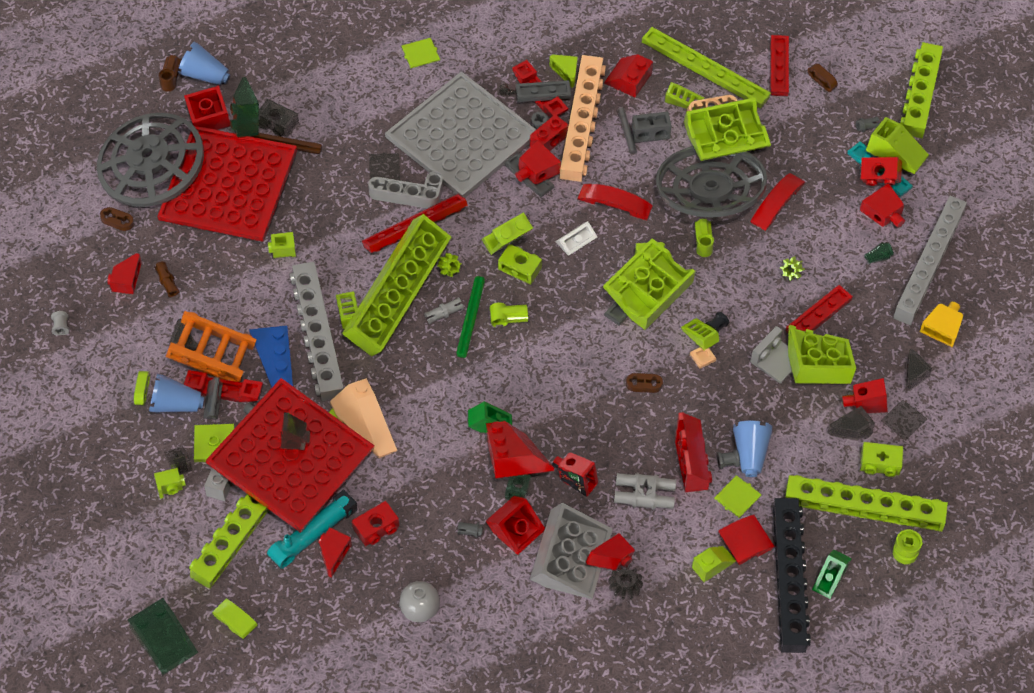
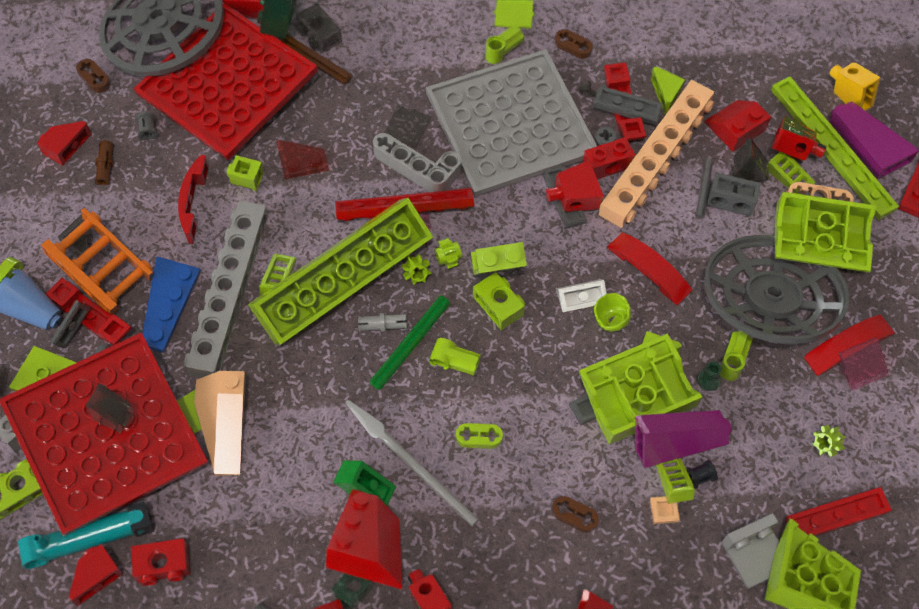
camera: 25 degrees right, 5 degrees up
(180, 239) = (146, 126): none -> dark grey bush
(257, 295) = (195, 175): none -> red slope
(317, 221) = (301, 159): none -> clear red wing
(426, 79) = (500, 45): none -> lime piece
(466, 245) = (448, 253): none -> lime gear
(478, 383) = (377, 430): none -> light grey piece
(479, 60) = (573, 44): none -> reddish brown beam
(552, 359) = (478, 441): none -> lime beam
(603, 236) = (610, 306): none -> lime hair
(653, 100) = (750, 163): none -> clear smoke slope
(678, 71) = (797, 140): none -> red torso
(690, 303) = (678, 435): none -> magenta slope
(693, 257) = (710, 376): none -> clear green cone
(702, 17) = (855, 85): none -> yellow torso
(733, 53) = (871, 140): none -> magenta slope
(793, 209) = (863, 363): none -> clear pink piece

